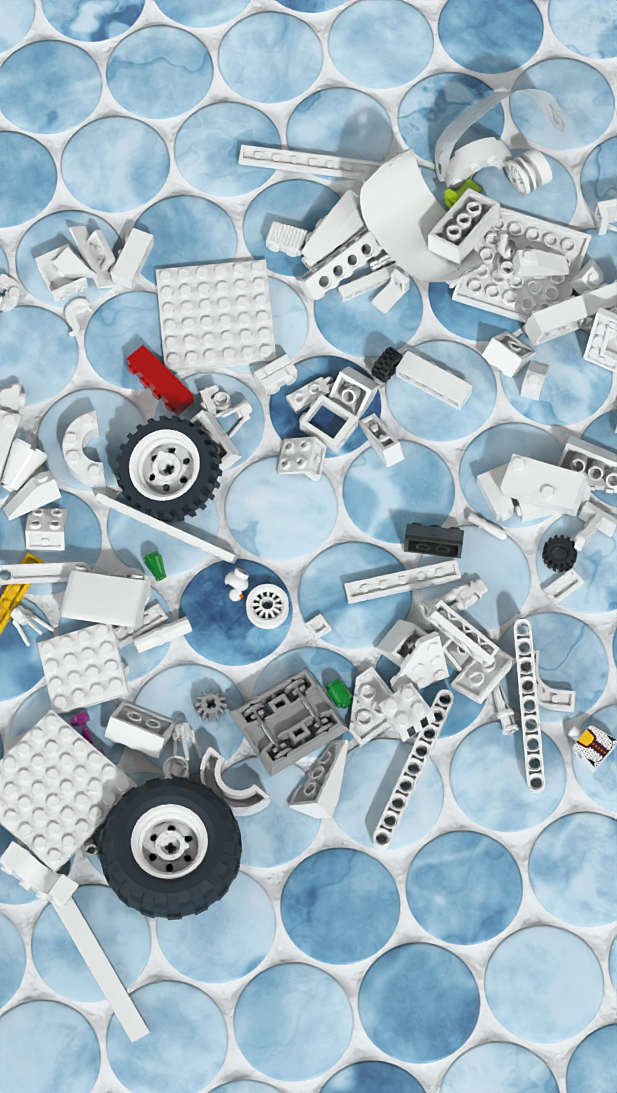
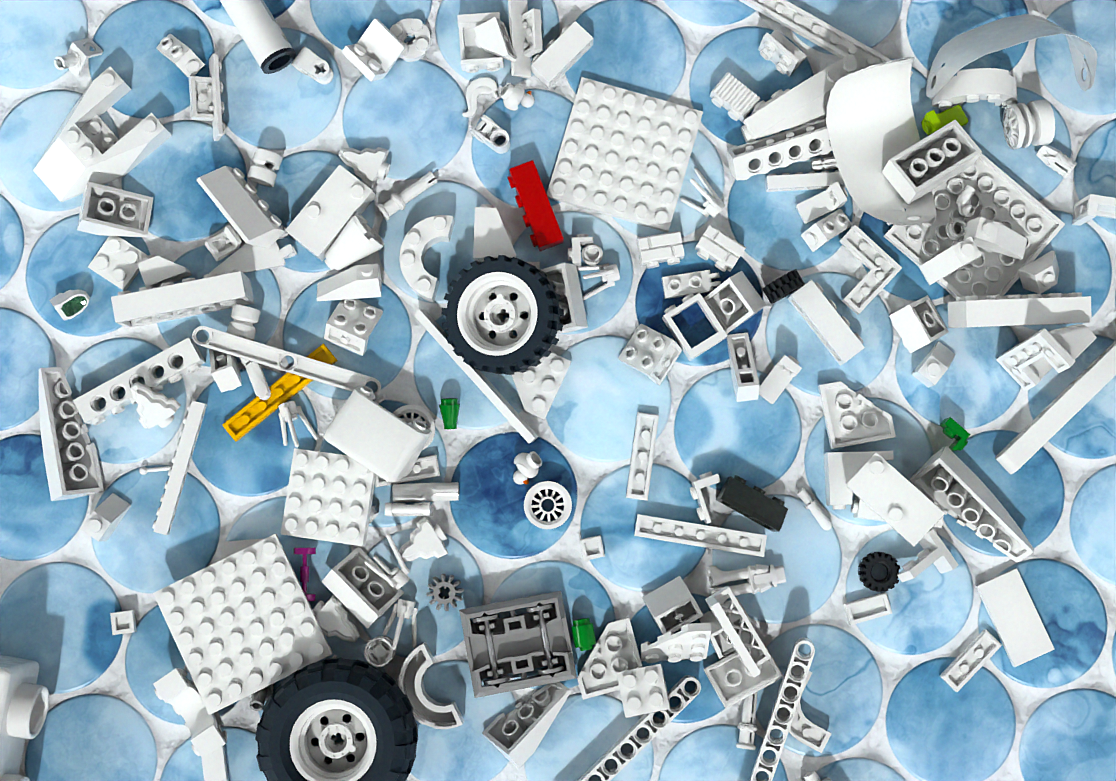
camera: 20 degrees right, 15 degrees up
(45, 419) = (398, 201): none -> white pin
(97, 339) = (488, 132): none -> white piece
(106, 304) = (514, 95): none -> white animal
(129, 763) = (334, 620): none -> white rock
(130, 413) = (490, 234): none -> white slope
(154, 651) = (402, 509): none -> white plate
(166, 707) = (396, 576): none -> white plant
(177, 674) = (424, 542): none -> white rock
(221, 515) = (540, 384): none -> white plate
(303, 326) = (712, 205): none -> white plant
(309, 192) = (781, 52): none -> white bracket
(323, 357) = (719, 249): none -> white brick
(329, 540) = (642, 456): none -> white tile
(388, 537) = (705, 480): none -> white bracket
(402, 310) = (826, 229): none -> white bracket
(414, 436) = (779, 378): none -> white bracket
(459, 322) = (881, 268): none -> white plate
(486, 444) = (852, 417): none -> white plate
(510, 293) = (950, 260): none -> white slope
(564, 191) = (1056, 160): none -> white hinge
(572, 422) = (954, 430): none -> green bracket

